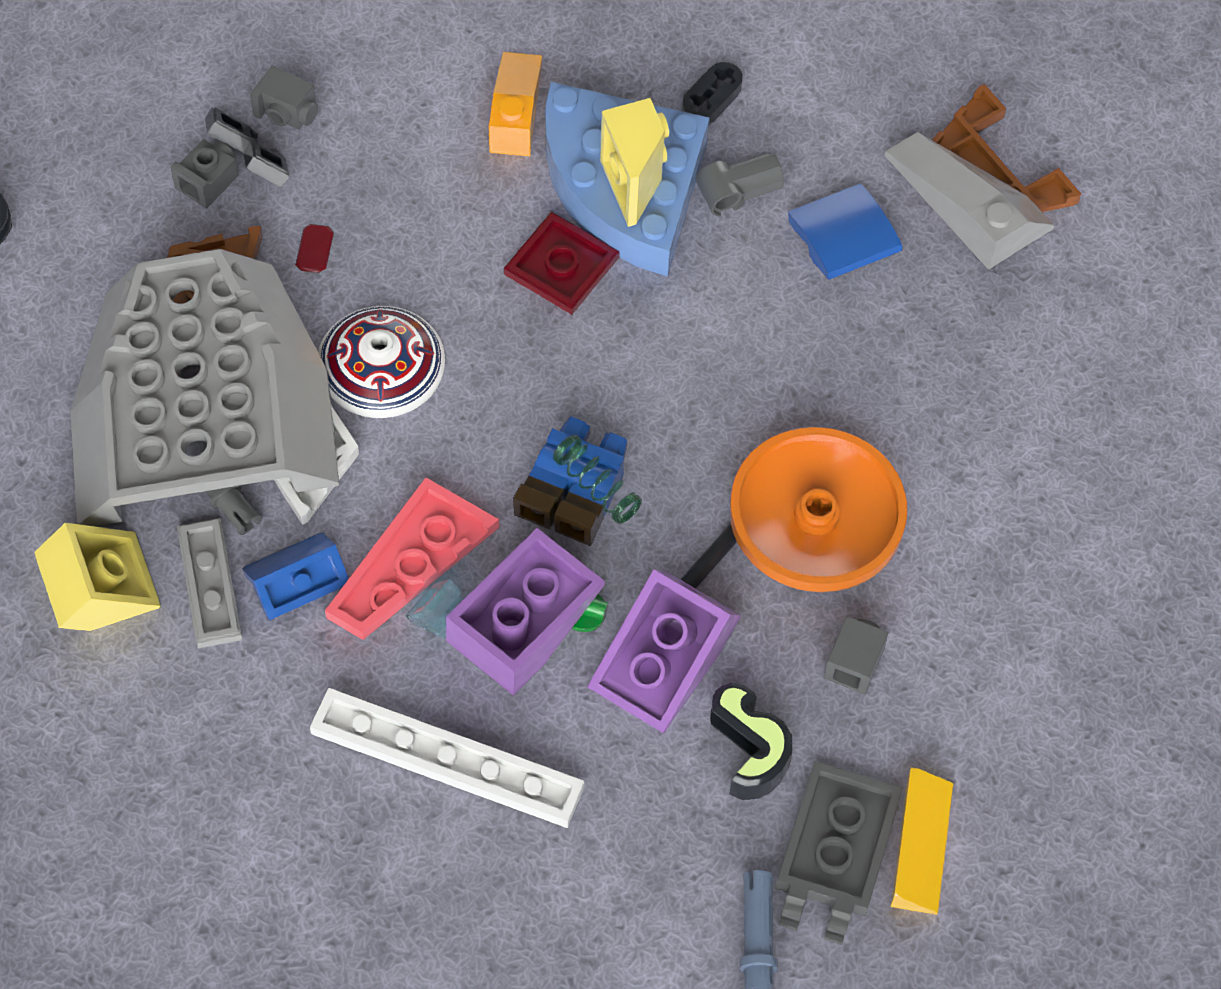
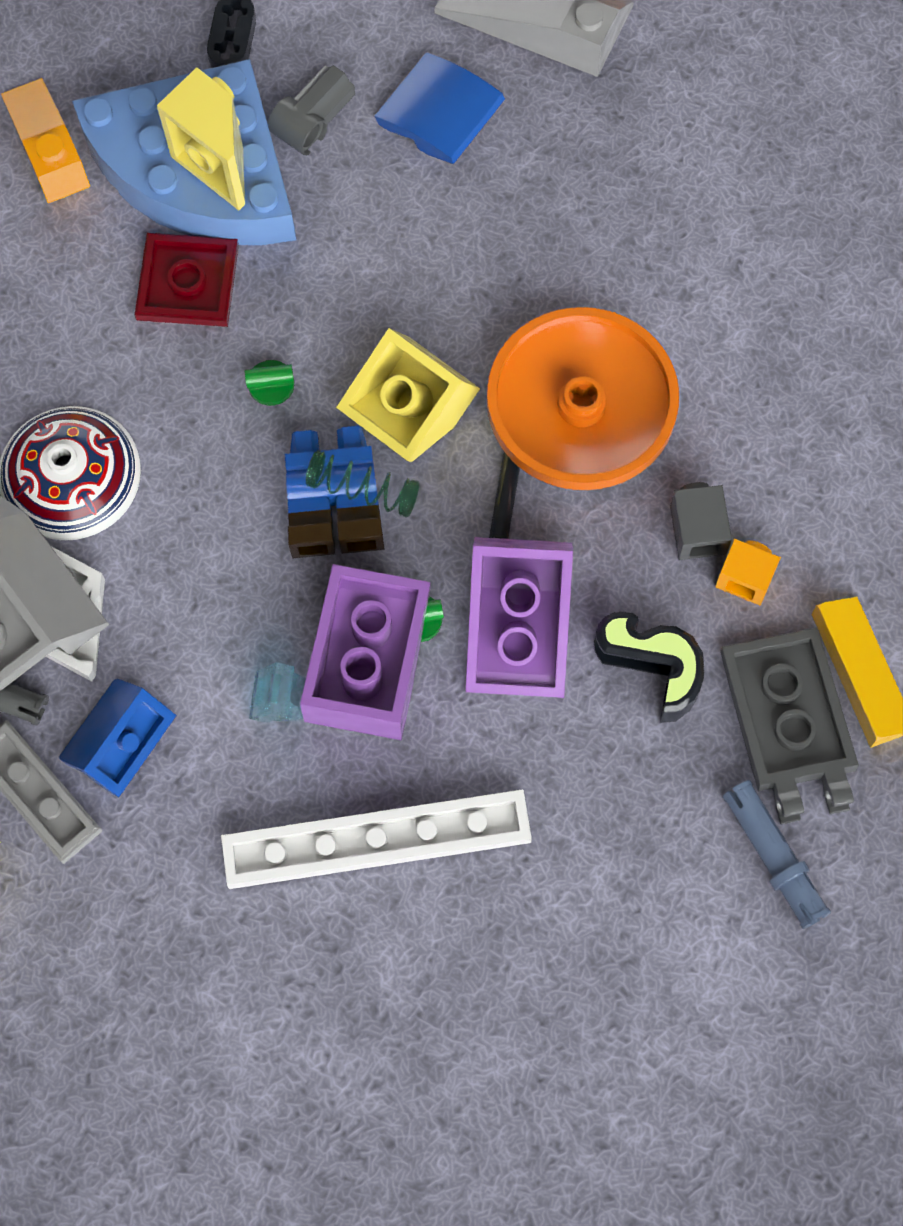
camera: 25 degrees left, 10 degrees up
(412, 553) = (219, 651): coral wing -> none
(577, 372) = (270, 382): none -> green plate
(678, 435) = (407, 396): none -> light yellow slope
(871, 712) = (748, 570): none -> light orange plate

